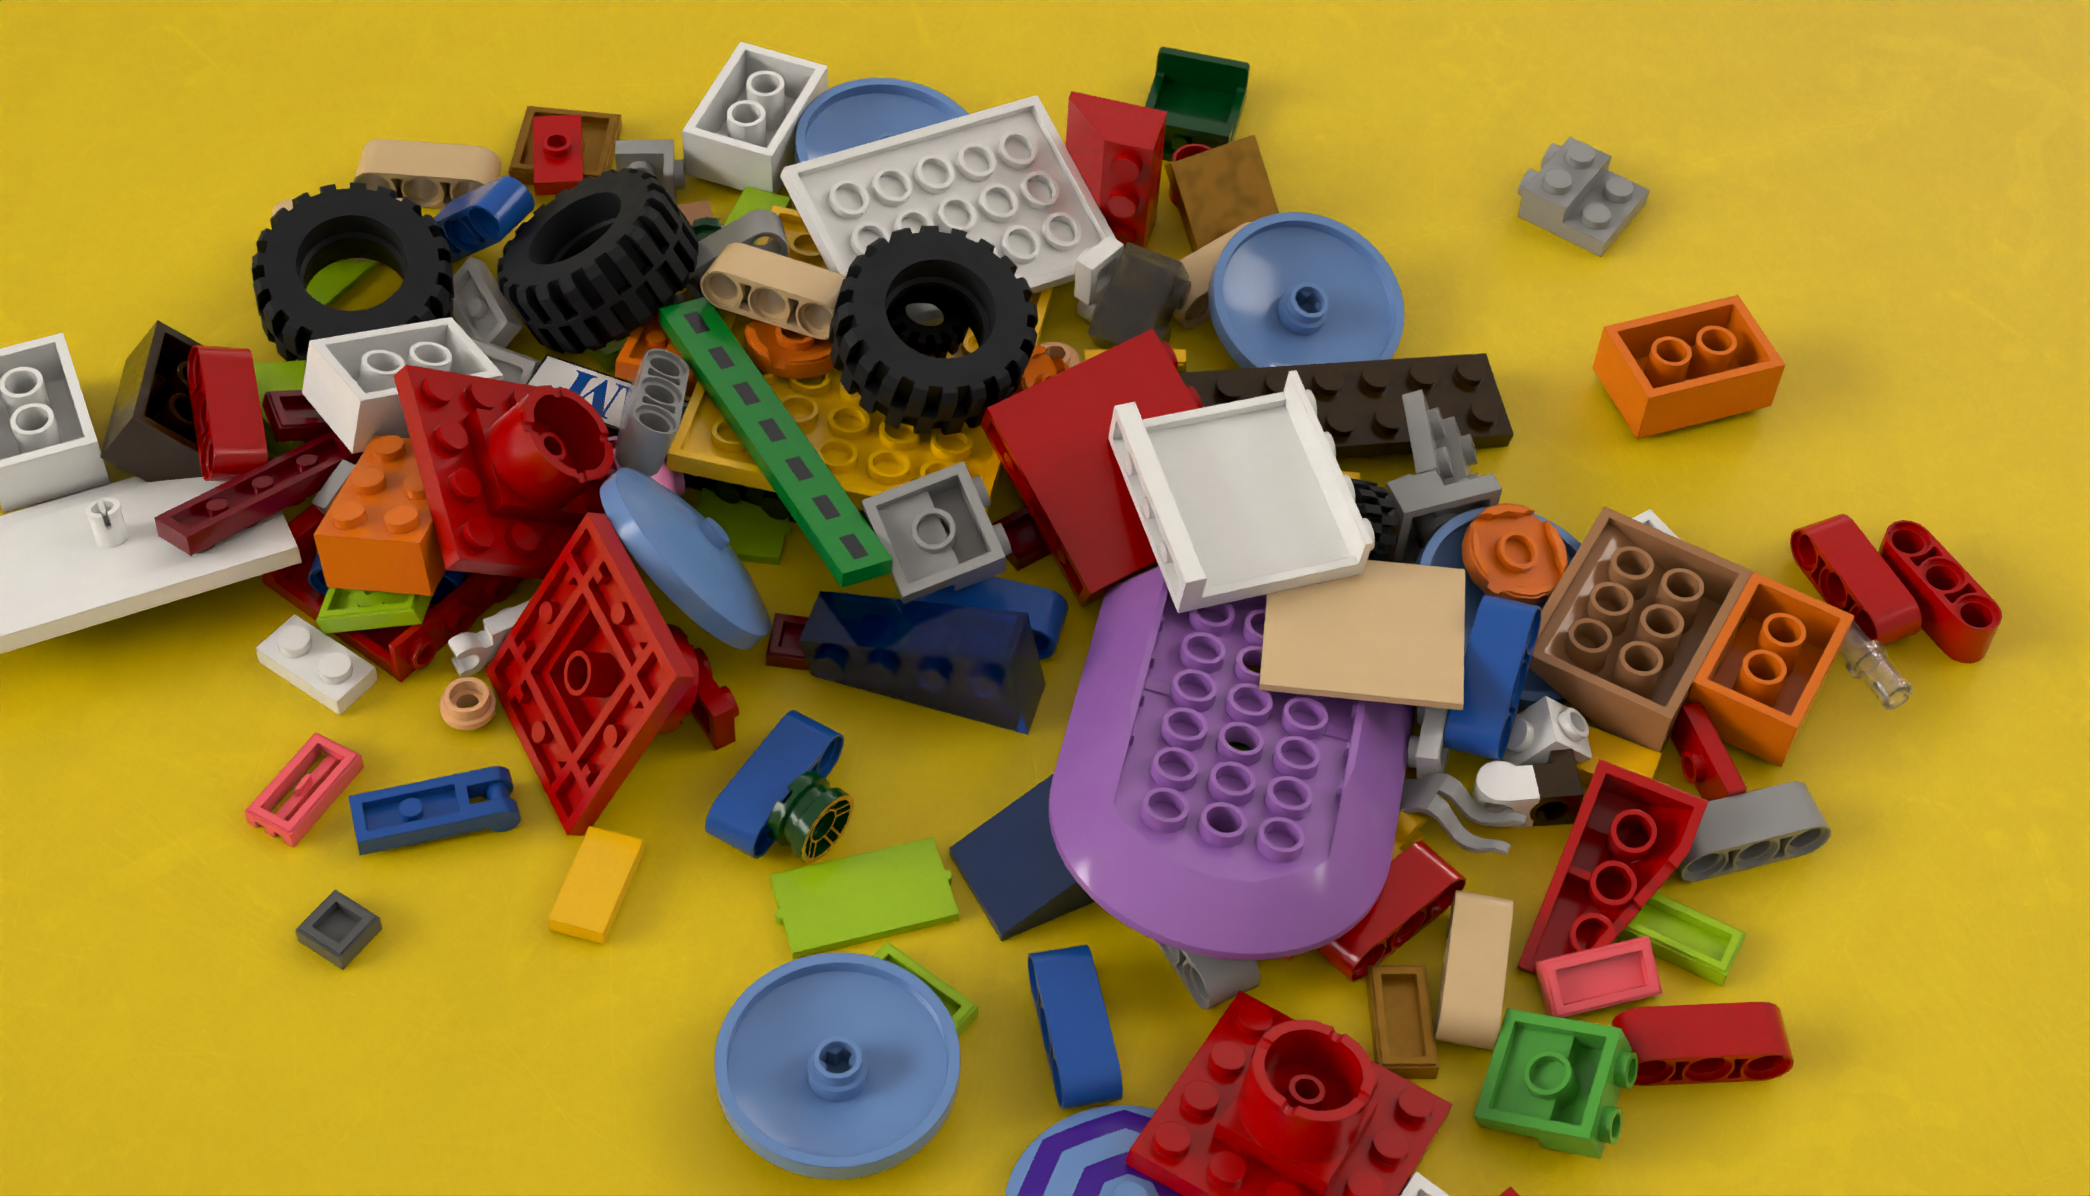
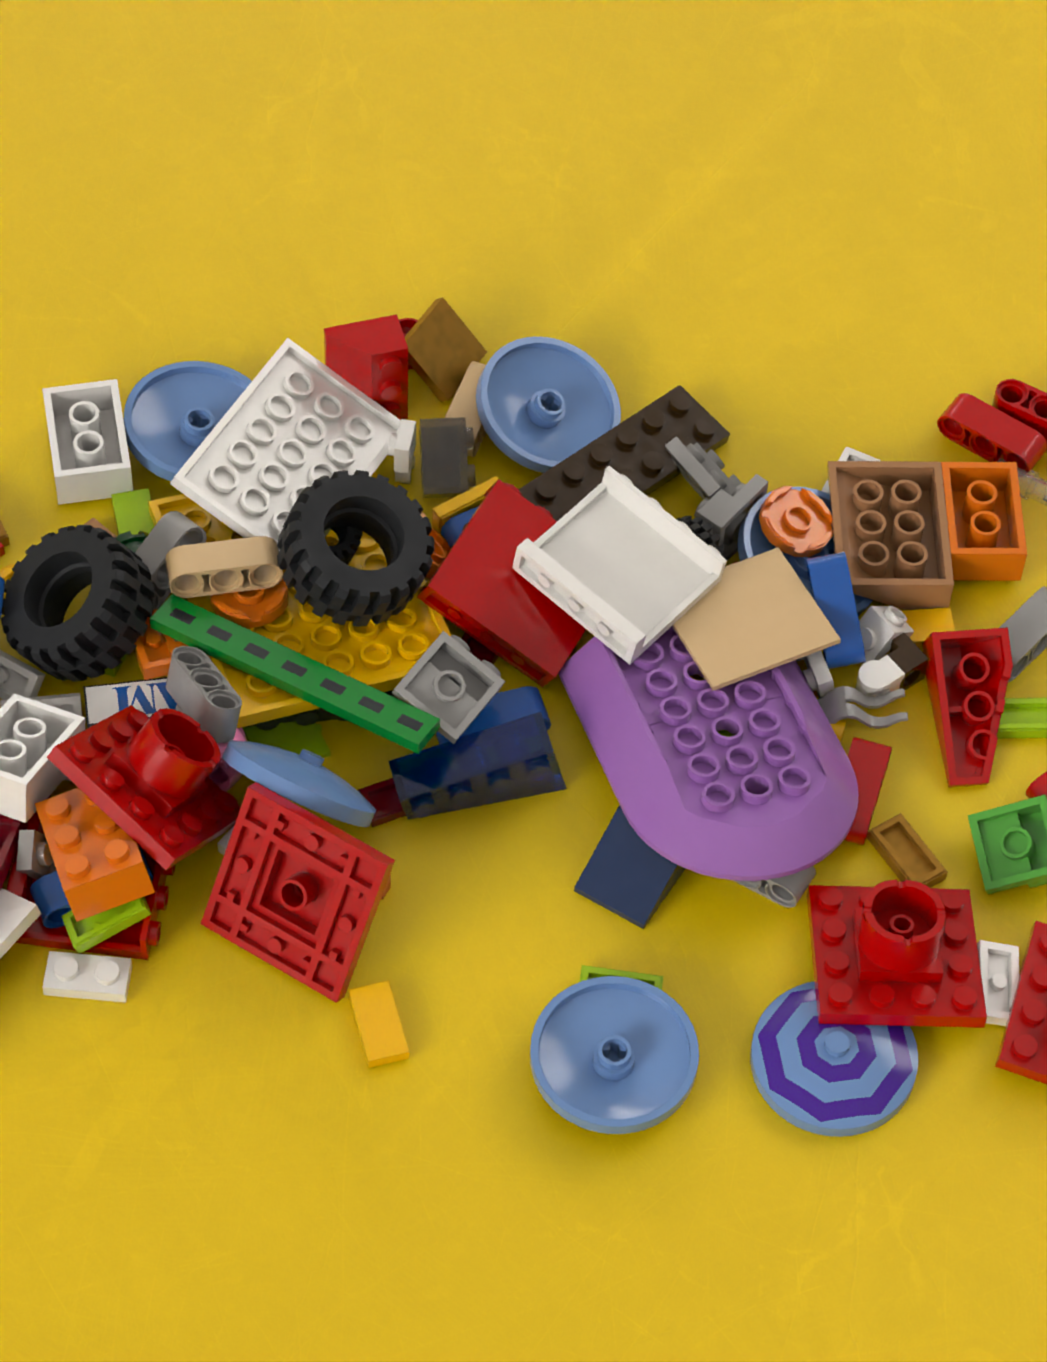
camera: 30 degrees left, 5 degrees up
(311, 795) = (146, 1092): coral tile -> none
(338, 929) = (240, 1137): dark grey tile -> none
(434, 809) = (242, 1031): blue plate -> none
(463, 693) = (208, 942): light nougat plate -> none
(477, 649) = (198, 891): white plate -> none
(654, 158) = (35, 510): light grey bracket -> none
(745, 804) = (443, 902): blue beam -> none
(811, 816) = (484, 911): dark green wheel -> none
(863, 897) = (544, 945): lime piece -> none
(1074, 1027) = (728, 958): blue beam -> none
(1200, 97) = (368, 284): dark green panel -> none
(1474, 970) = (930, 800): tan beam -> none
(1580, 196) = (662, 238): light grey plate -> none
(1598, 977) = (1001, 769): coral tile -> none
(1688, 366) = (809, 334): orange brick -> none
(1704, 755) = (980, 599): red plate -> none

